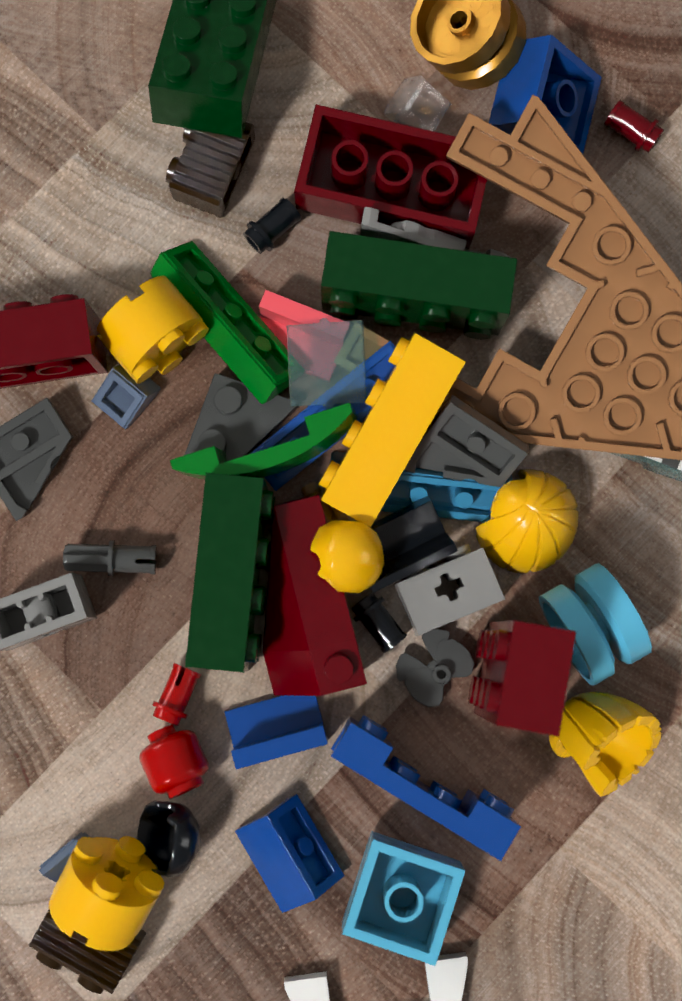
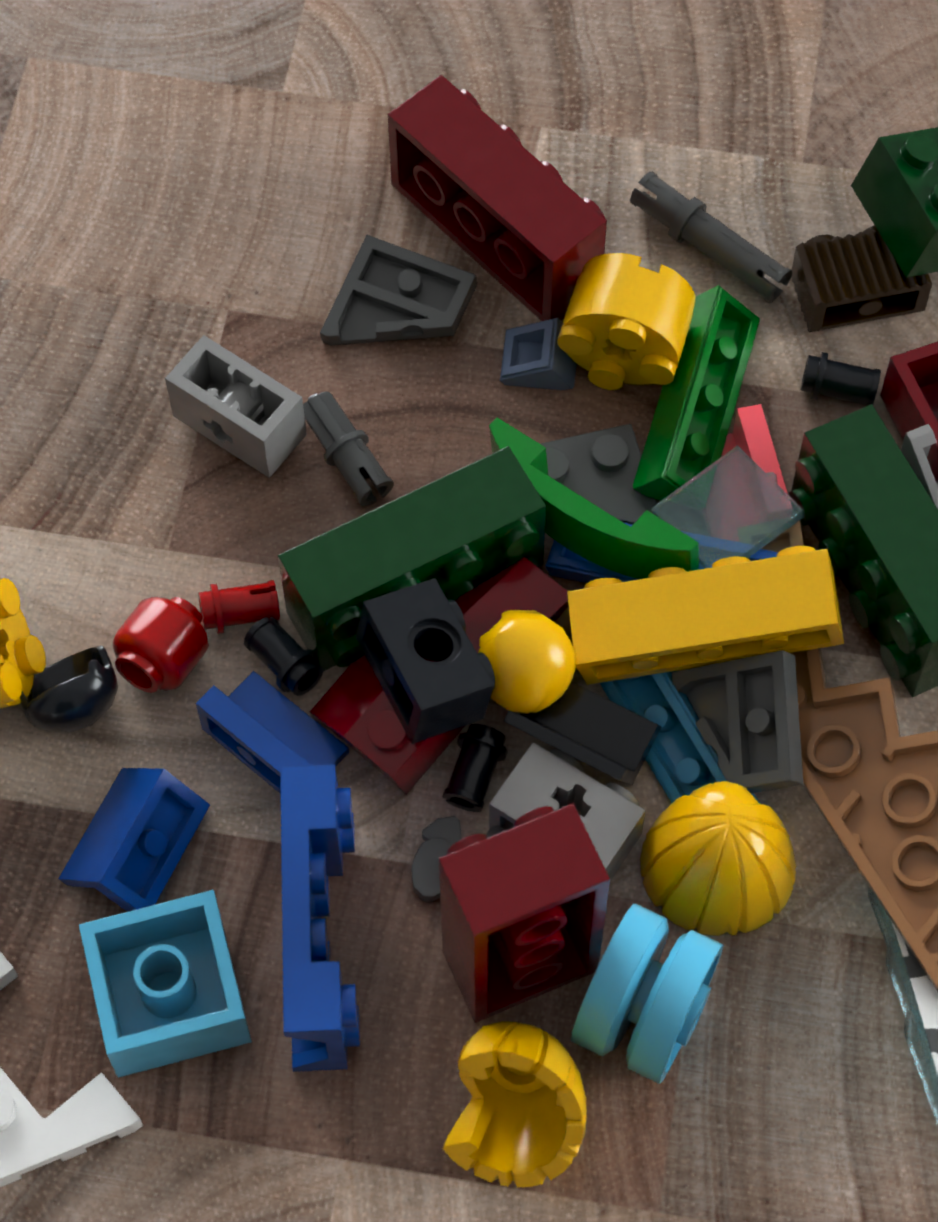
camera: 60 degrees right, 20 degrees down
(115, 230) = (692, 223): none -> dark grey pin
(229, 689) = (295, 668): none -> black pin
(339, 639) = (423, 693): none -> black brick

